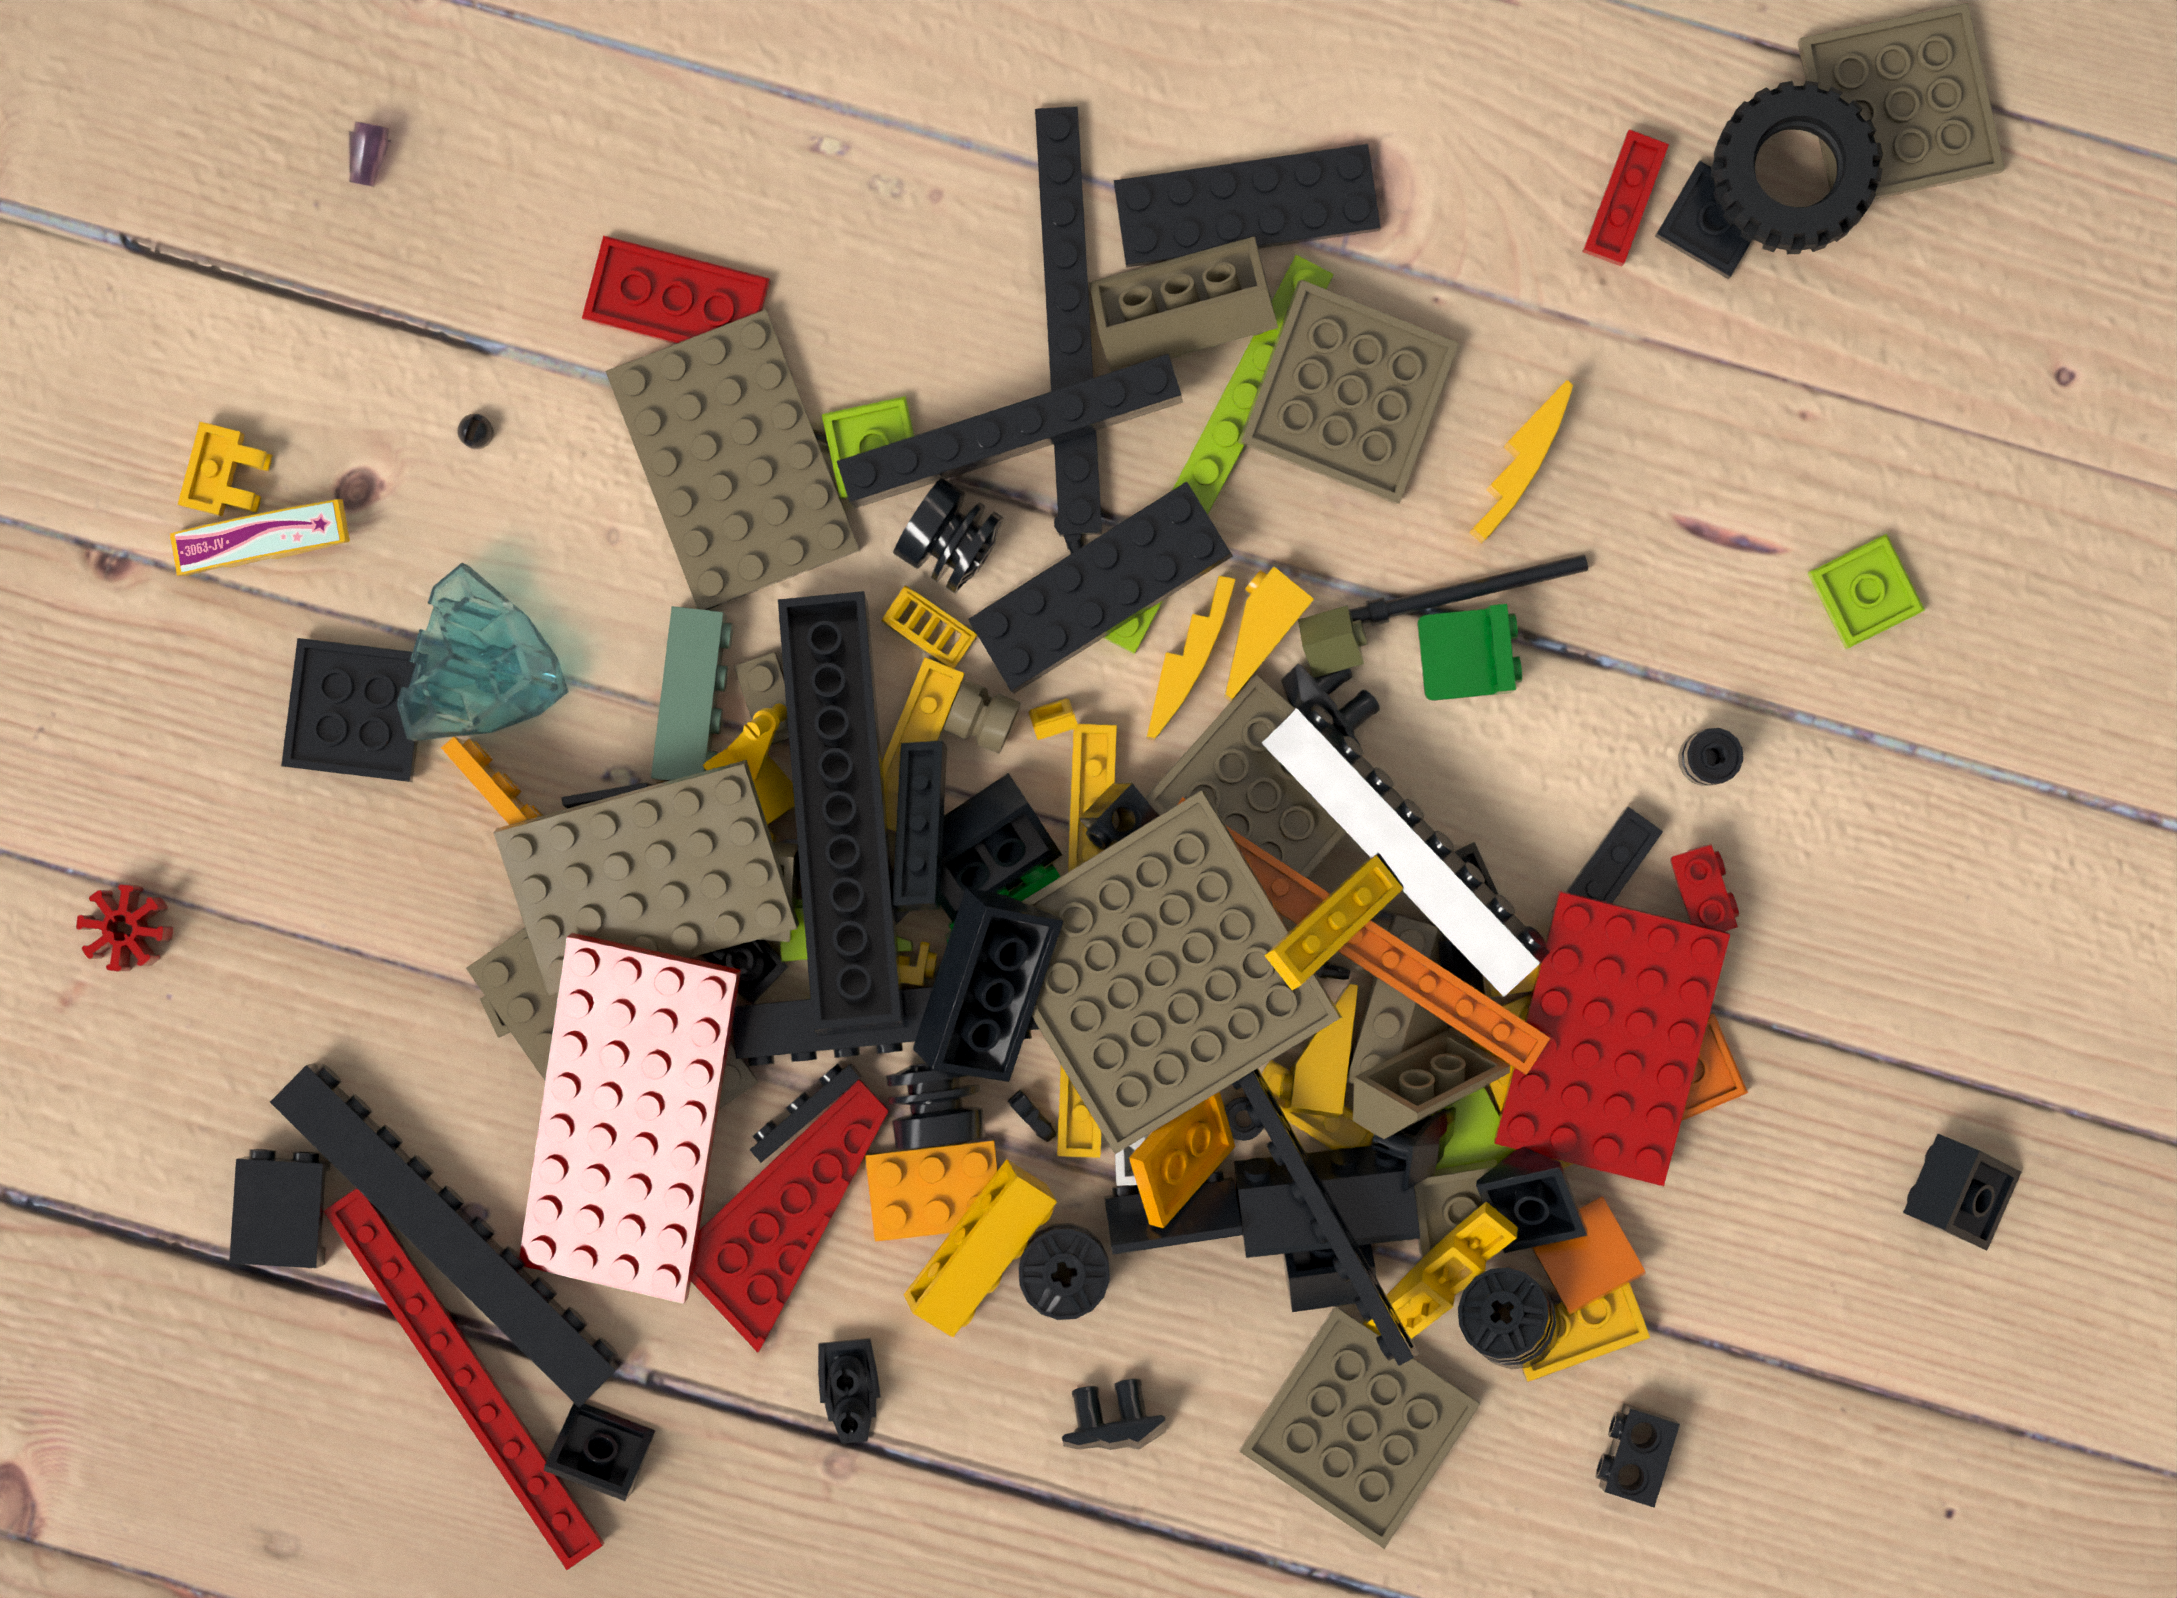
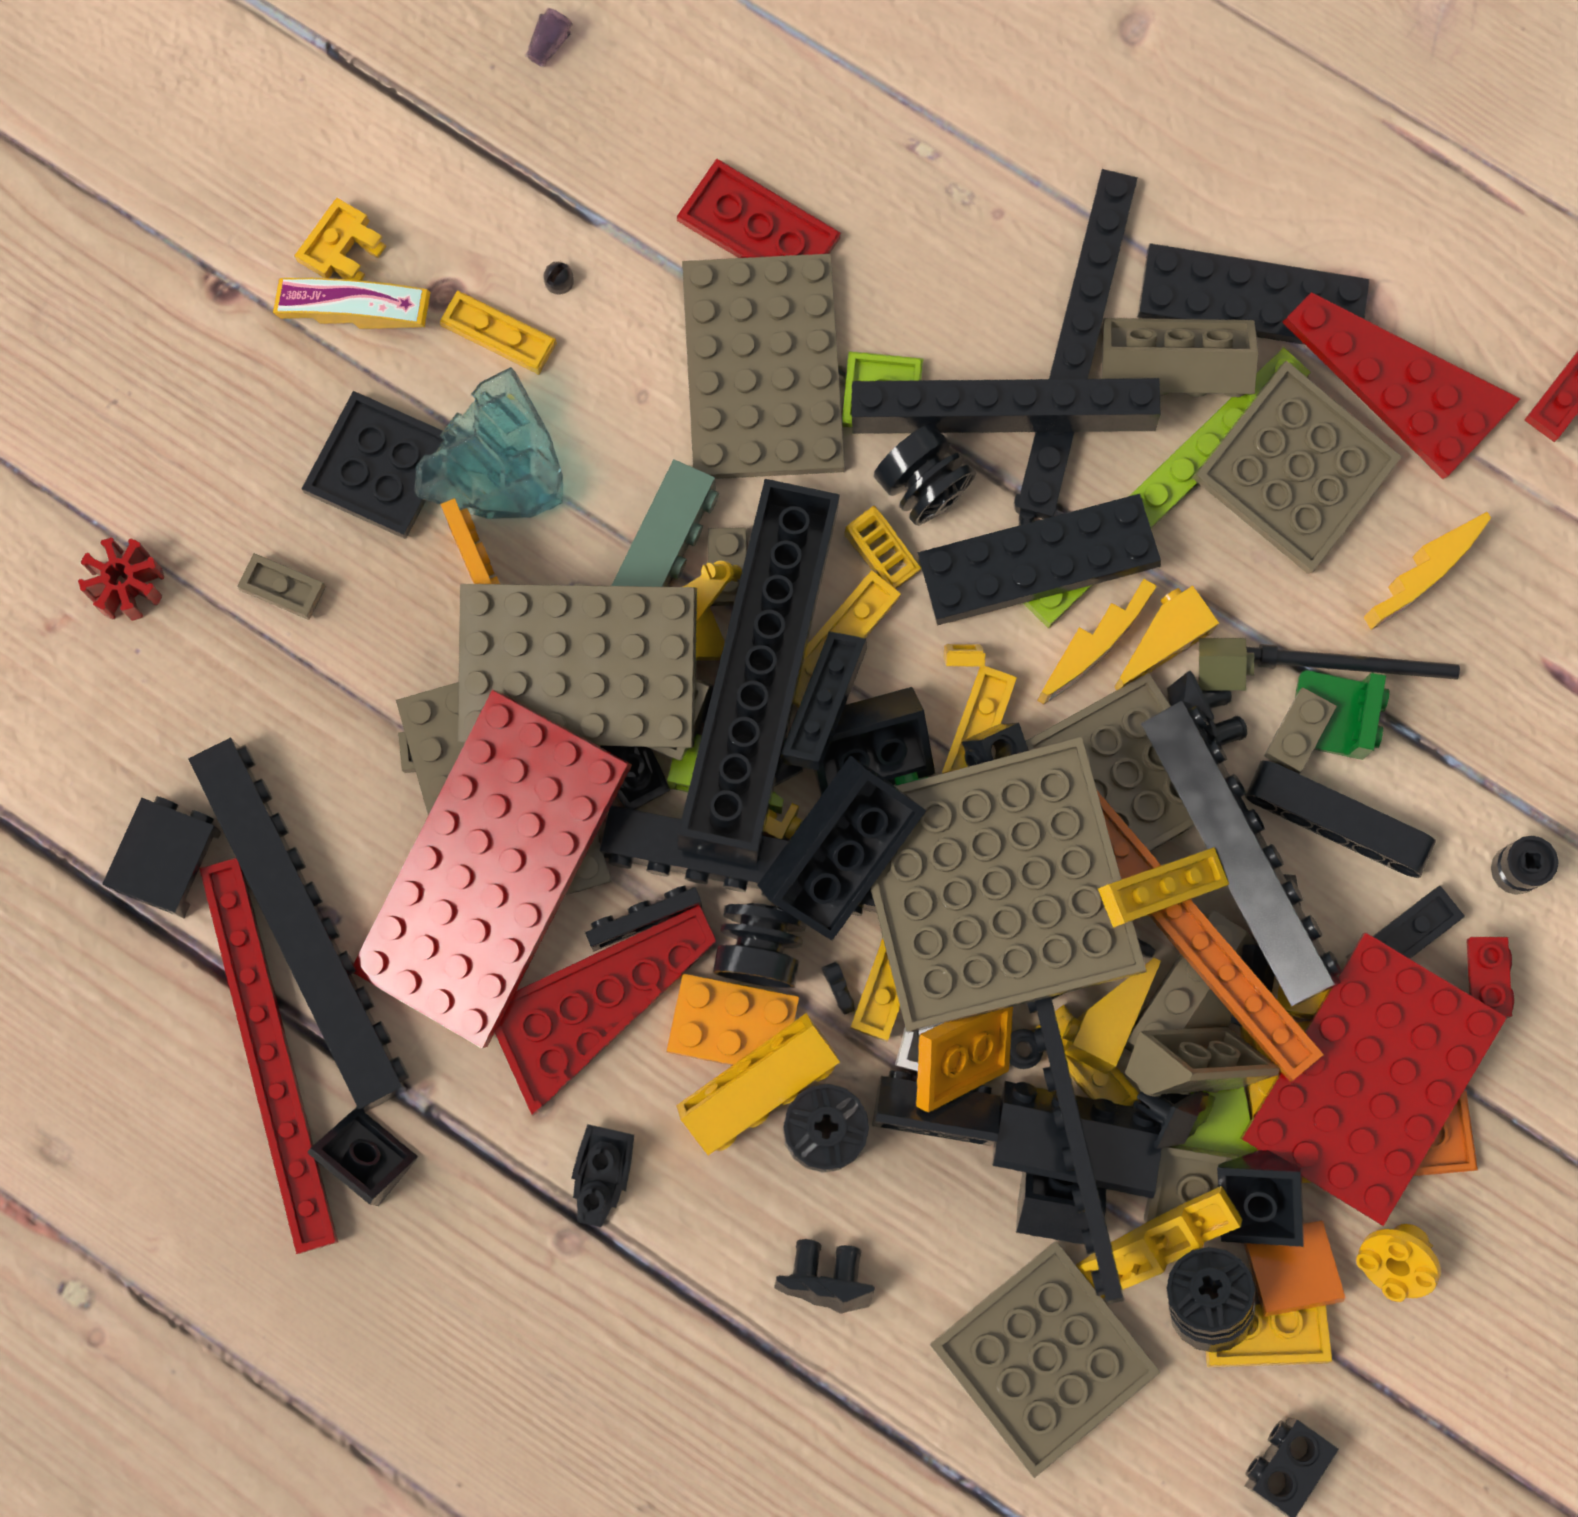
camera: 15 degrees right, 10 degrees down
(298, 879) = (281, 586): none -> dark tan plate
(430, 515) = (498, 332): none -> yellow tile
(982, 716) = (904, 633): dark tan wheel -> none
(1434, 686) = (1300, 730): none -> dark tan plate
(1457, 262) = (1415, 393): none -> red wing
(1504, 767) = (1340, 819): none -> black beam
(1692, 1214) = (1400, 1262): none -> yellow plate

